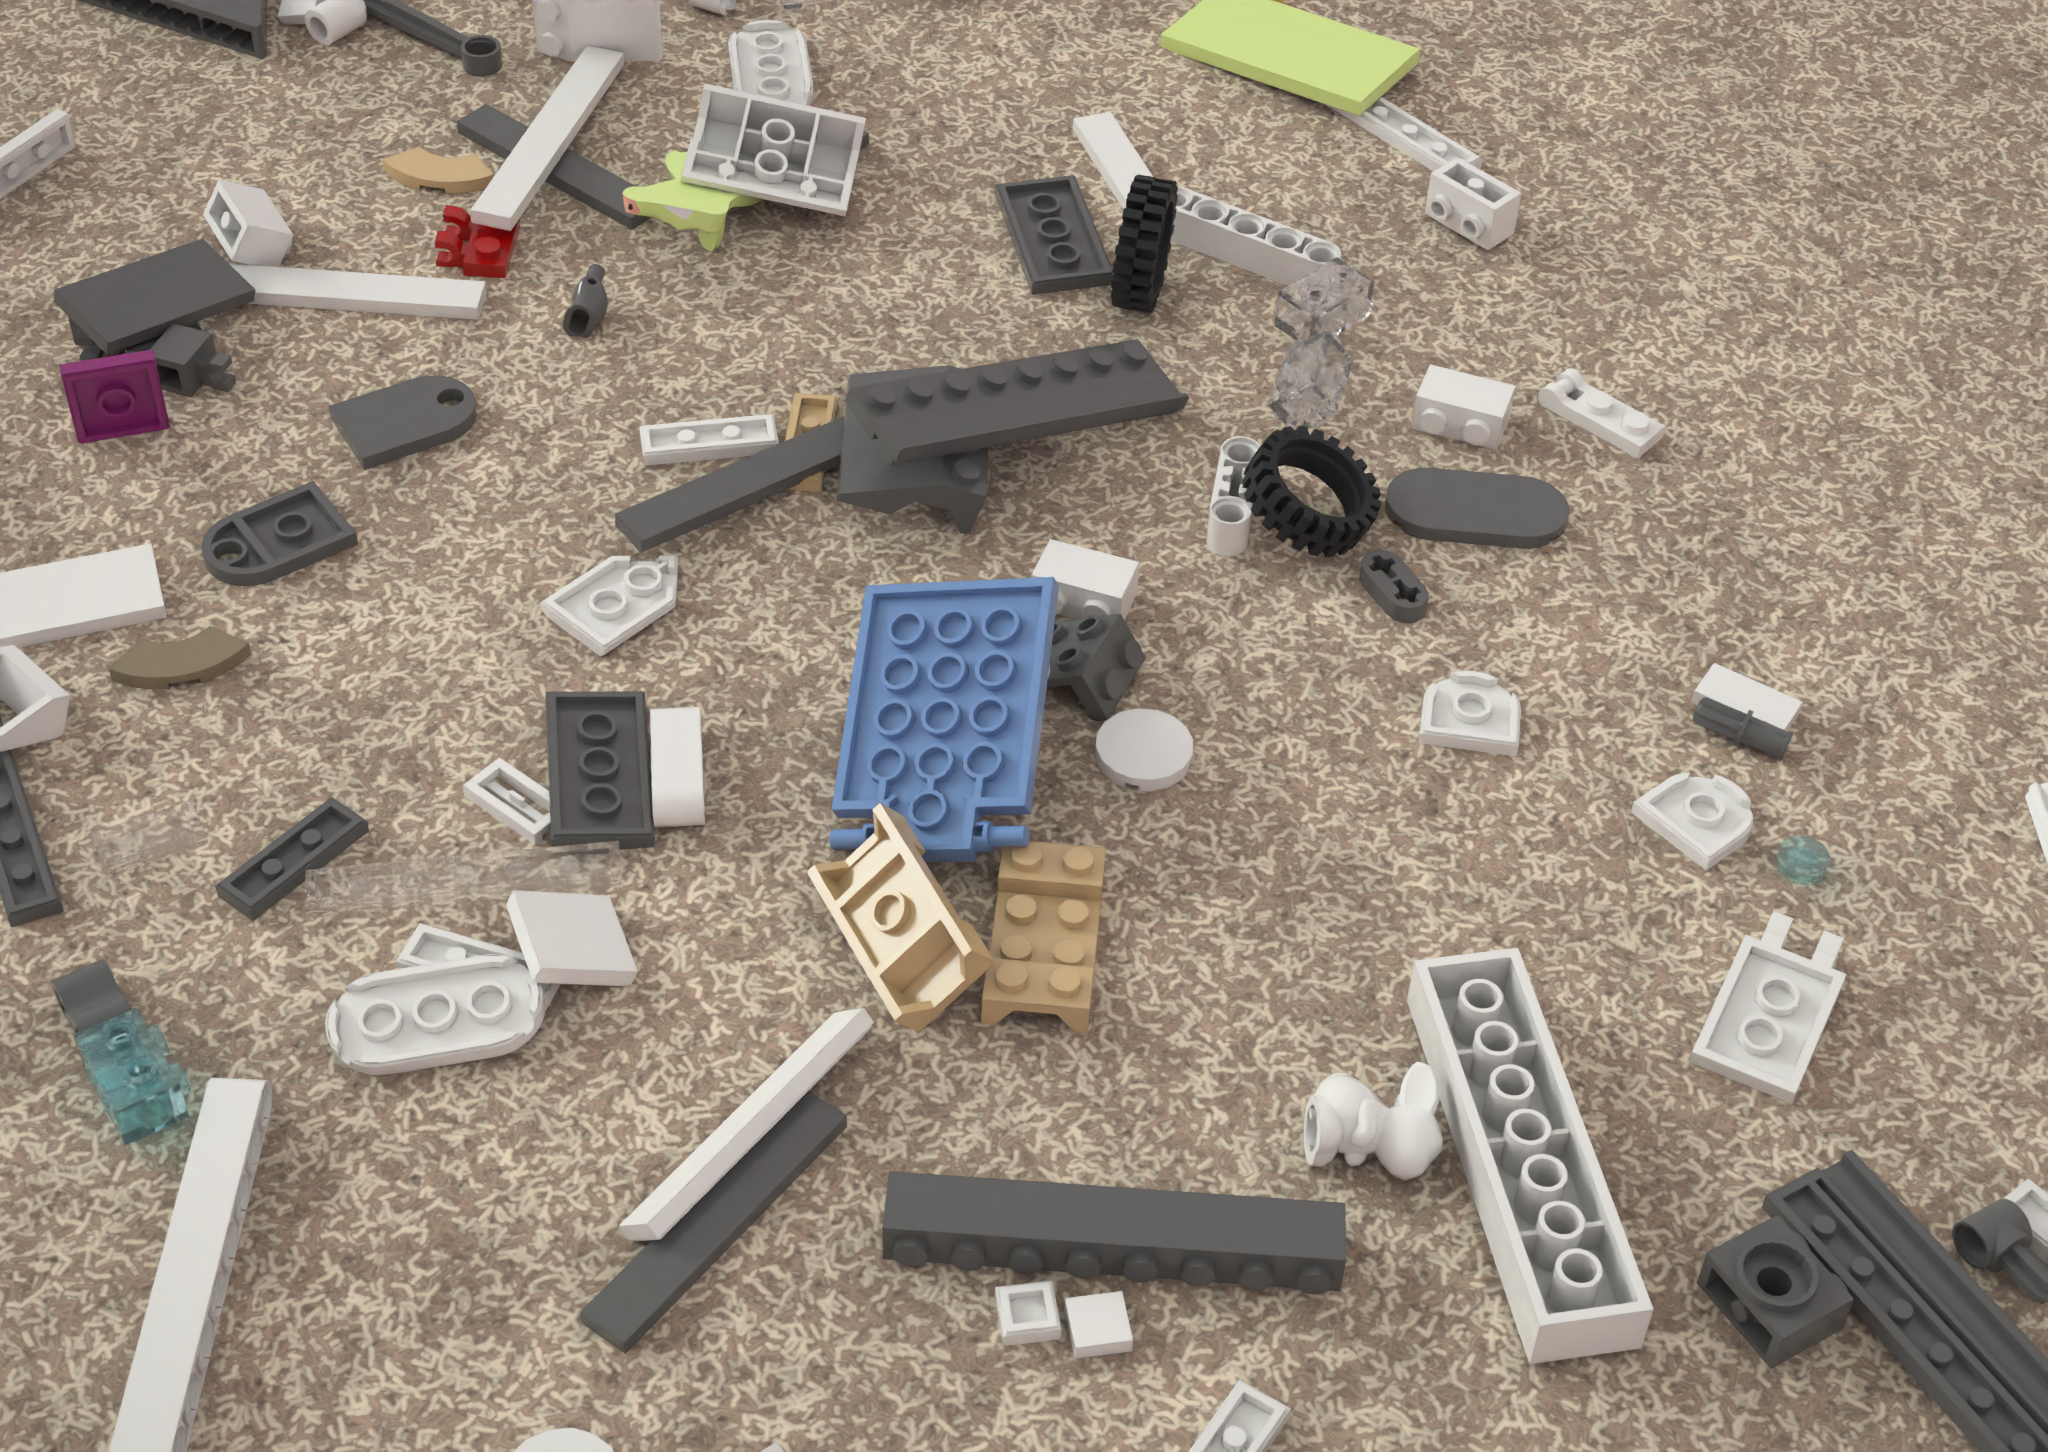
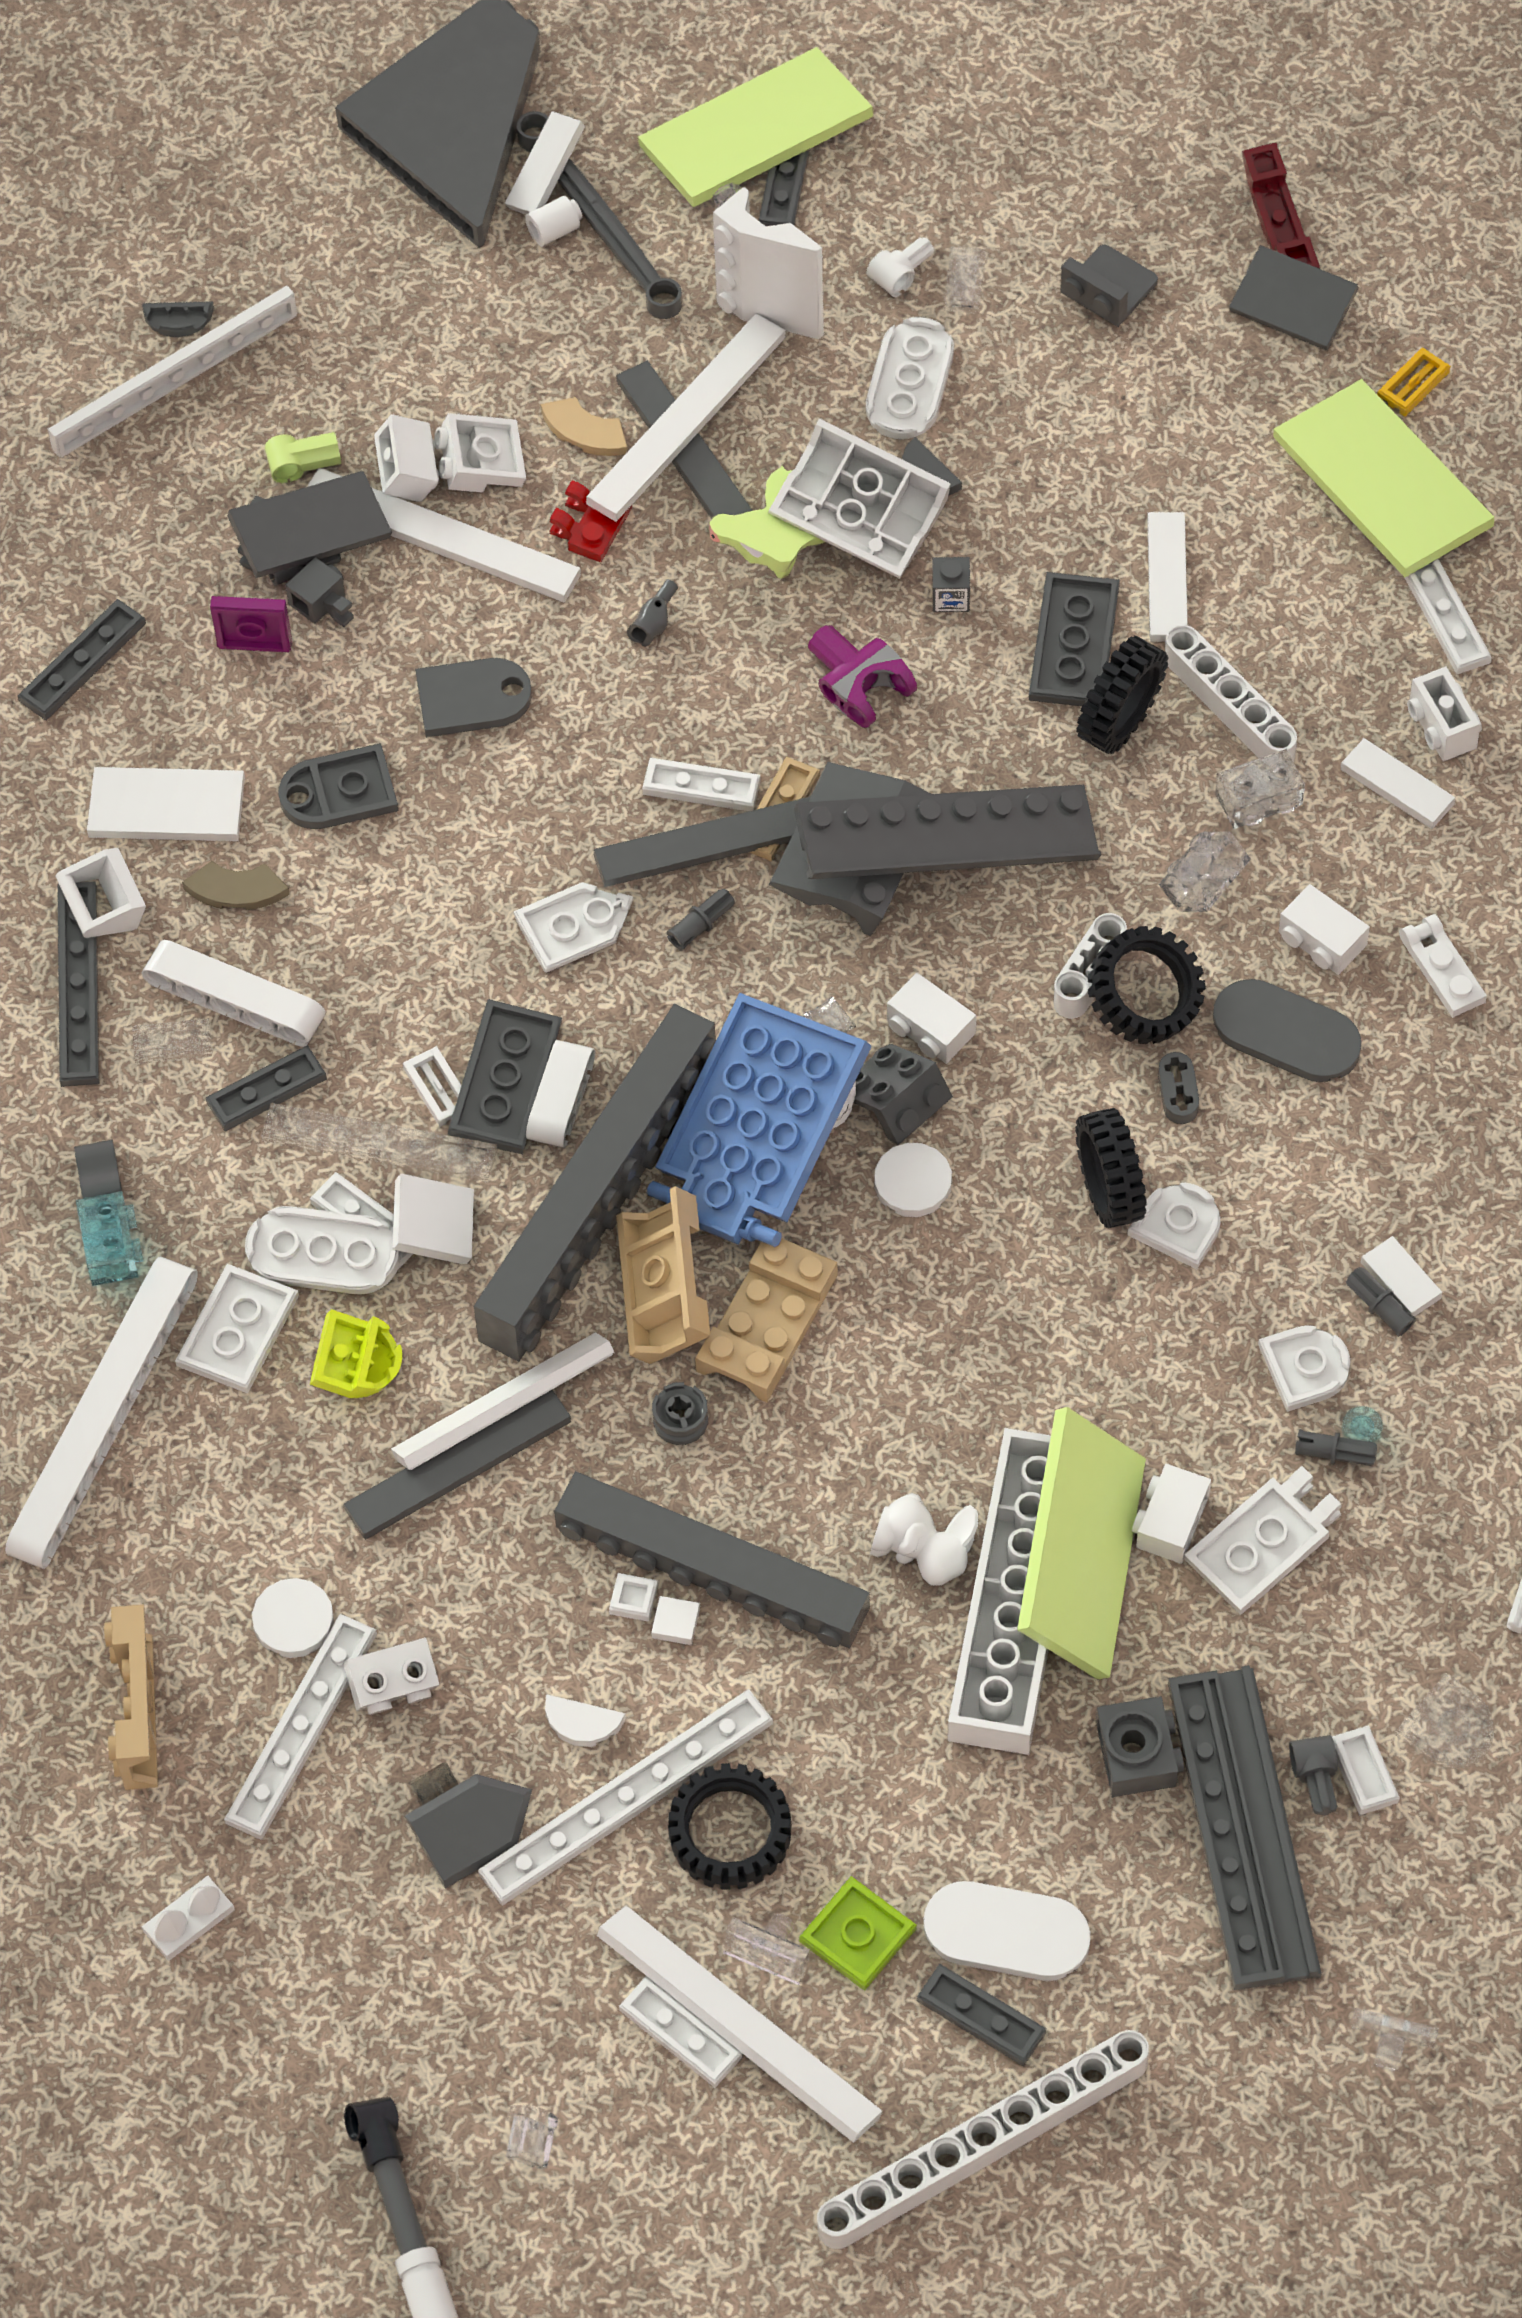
camera: 25 degrees right, 15 degrees up
(106, 252) = (292, 457): none -> yellowish green piece
(215, 763) = (233, 992): none -> white beam
(329, 207) = (479, 452): none -> white plate
(348, 1141) = (237, 1328): none -> white tile
(527, 1126) = (355, 1356): none -> neon yellow slope
(766, 559) = (700, 919): none -> dark grey axle
(766, 851) = (594, 1186): none -> dark grey brick
(841, 305) = (858, 671): none -> magenta connector
(903, 209) = (951, 584): none -> dark grey brick
(973, 1074) = (667, 1422): none -> dark grey wheel
(1410, 646) = (1110, 1168): none -> black tyre
(1455, 276) = (1397, 783): none -> white tile
(1581, 1068) = (1081, 1544): none -> yellowish green tile
(1652, 1009) = (1172, 1514): none -> white brick
(1791, 888) = (1336, 1448): none -> dark grey axle

